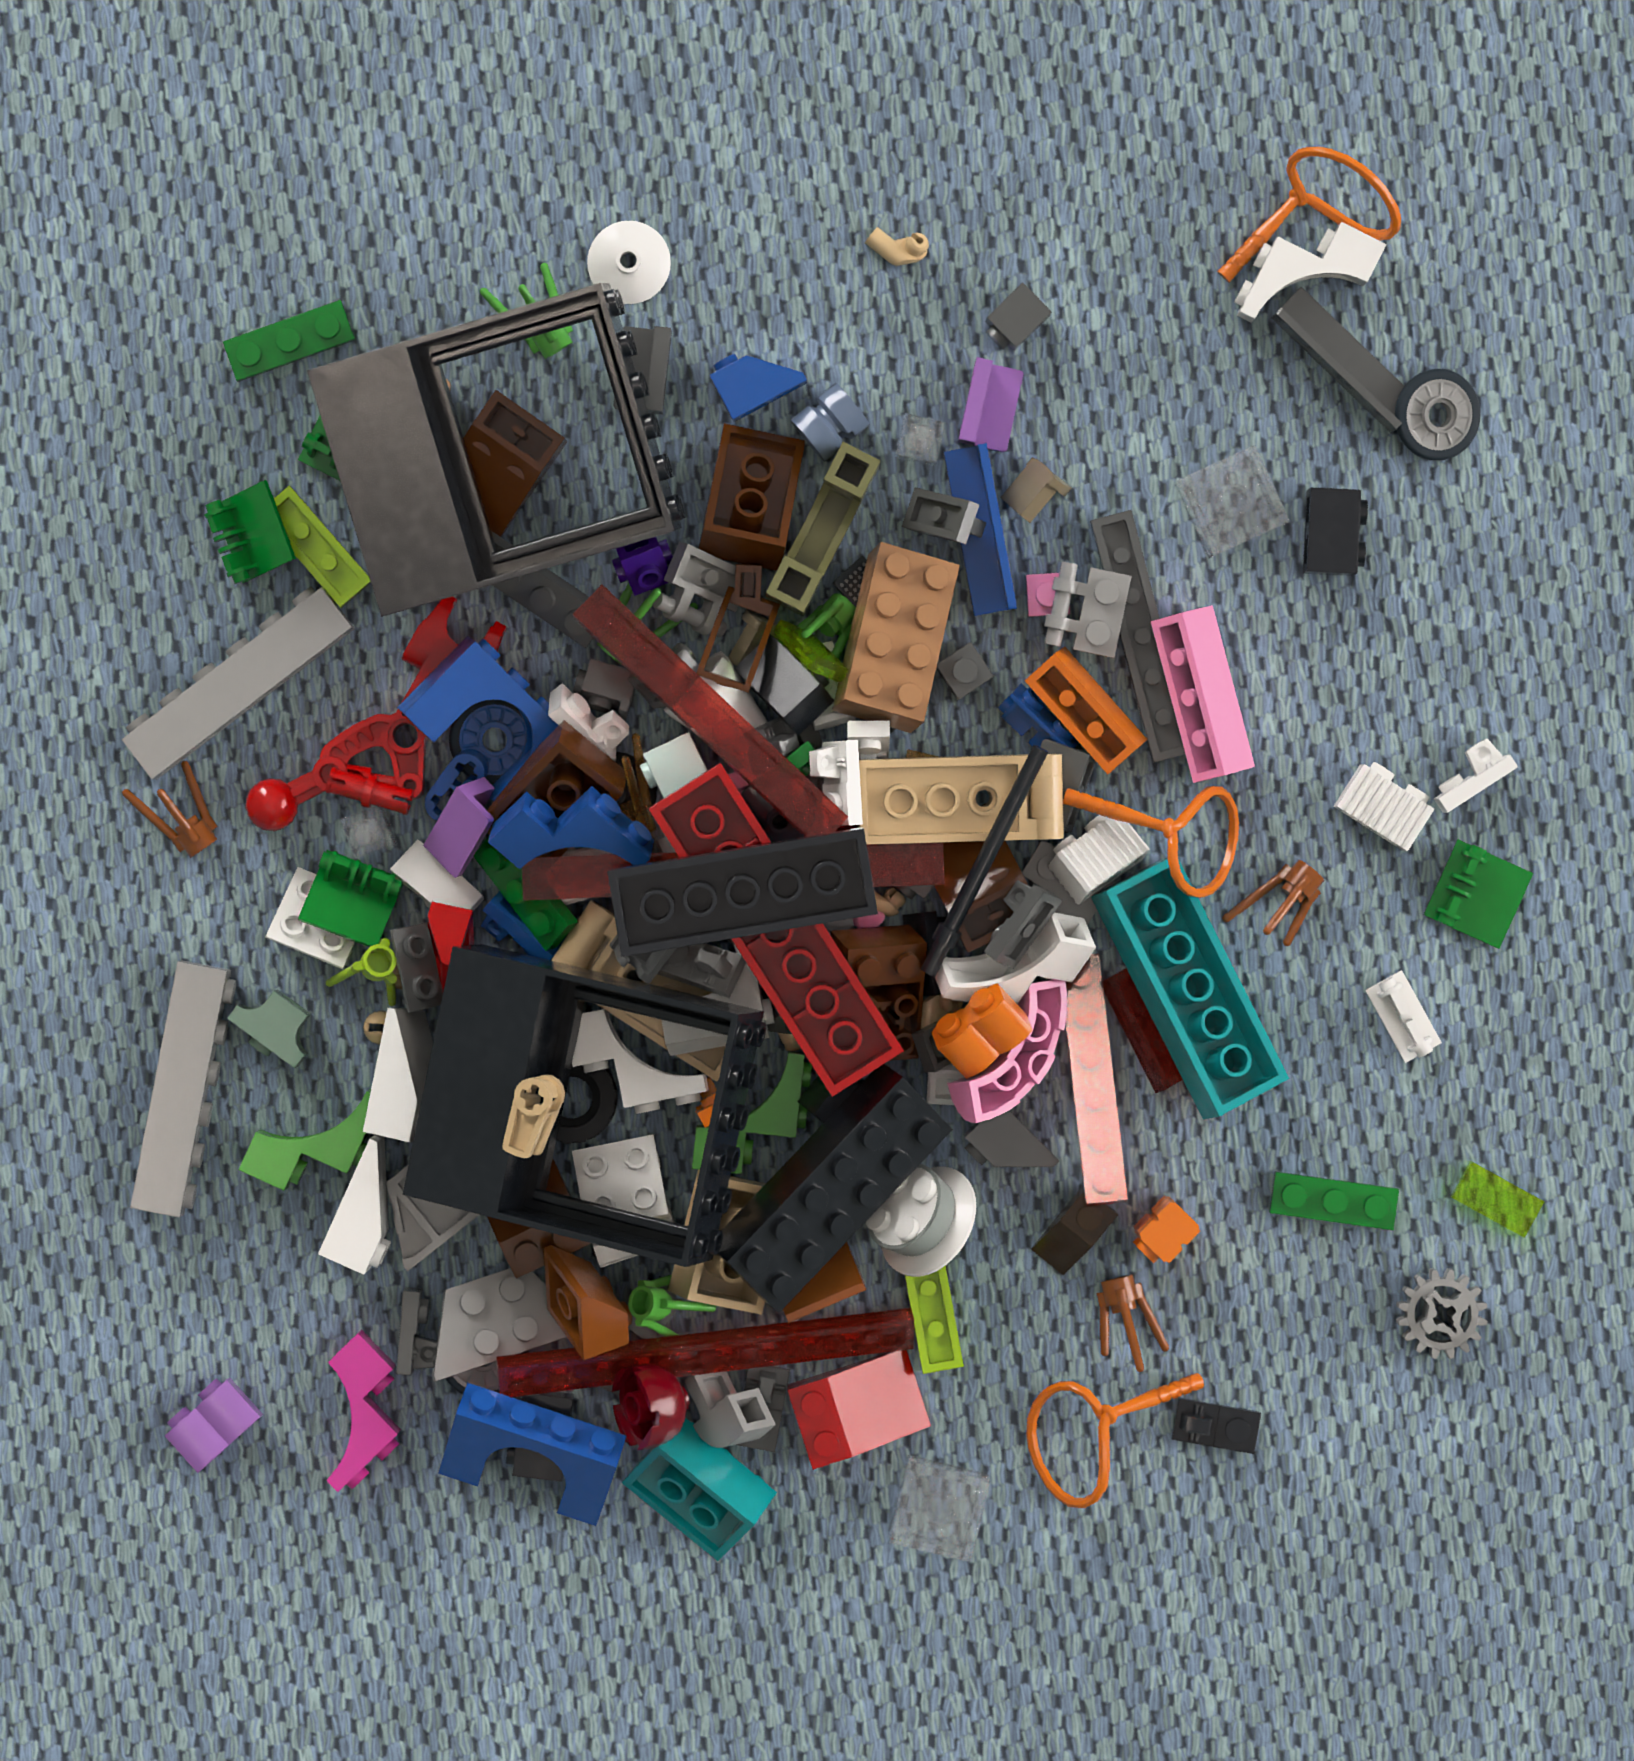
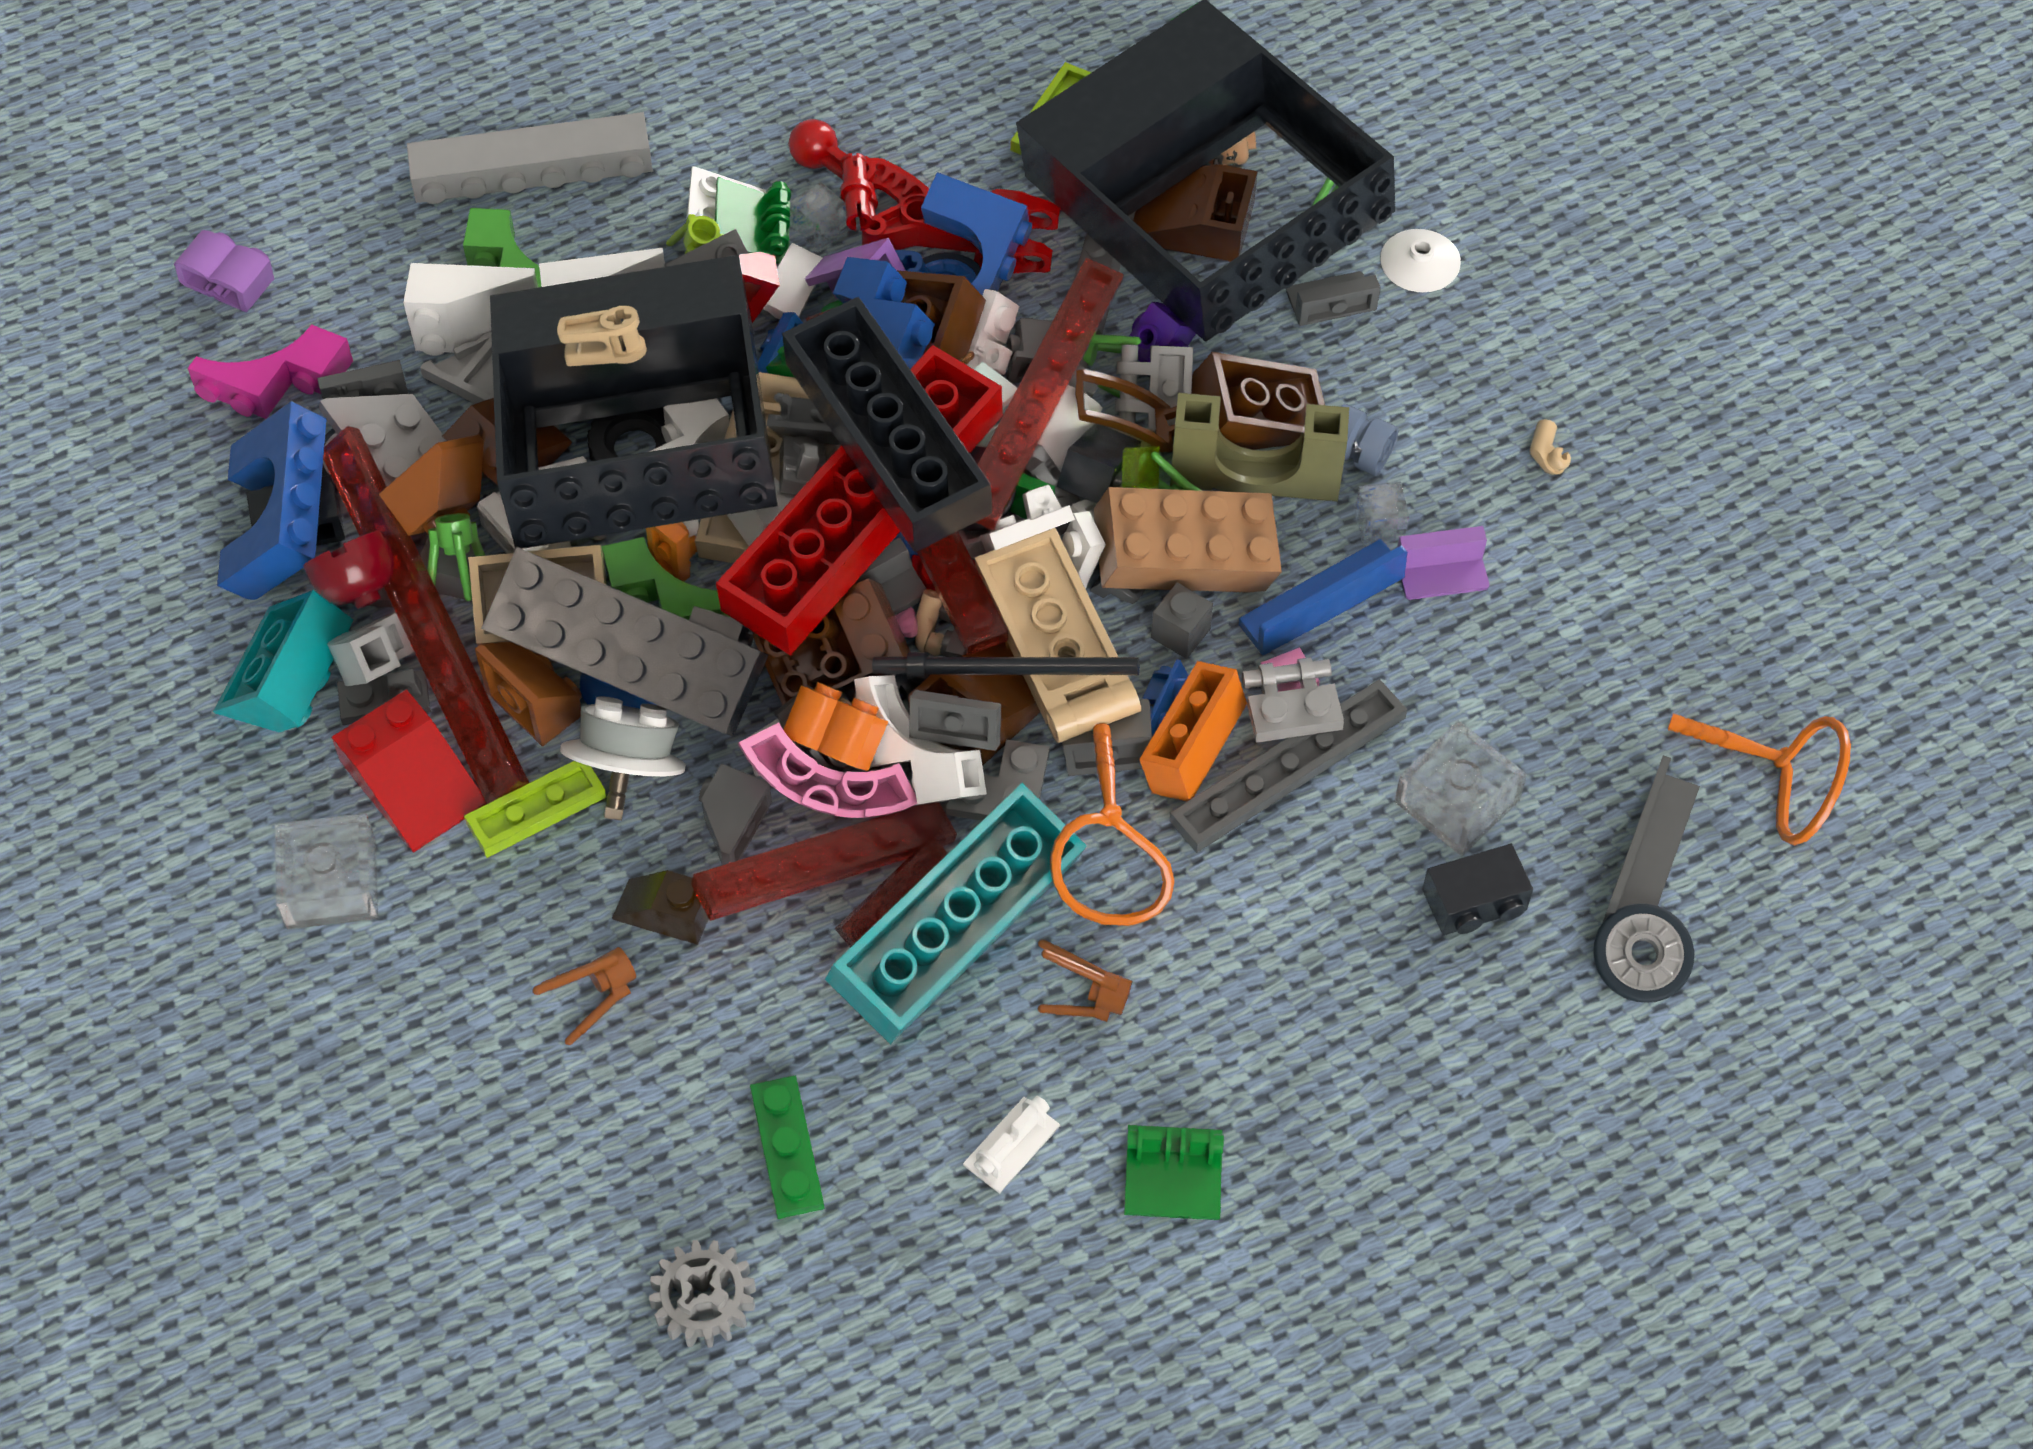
camera: 65 degrees right, 30 degrees down
(193, 833) = (764, 101): dark orange plant -> none
(237, 683) = (909, 92): light grey brick -> none
(251, 531) = (1040, 55): green hinge -> none
(274, 1027) = (613, 206): sand green brick -> none
(752, 383) = (1361, 373): blue slope -> none
(943, 516) = (1321, 552): dark grey hinge -> none
(1017, 318) = (1536, 556): dark grey brick -> none
(1034, 489) = (1386, 622): dark tan tile -> none
(1096, 857) = (1054, 780): white brick -> none
(1107, 1417) = (475, 982): orange piece -> none
(1164, 1231) = (694, 974): orange brick -> none
(1202, 694) = (1258, 829): bright pink brick -> none
(1216, 1425) = (500, 1116): black hinge -> none
(1346, 256) = (1709, 759): white arch -> none
(1385, 806) = (1223, 1041): white brick -> none
(1488, 768) = (1307, 1128): white hinge -> none
(1497, 1199) = (851, 1312): clear neon green tile -> none

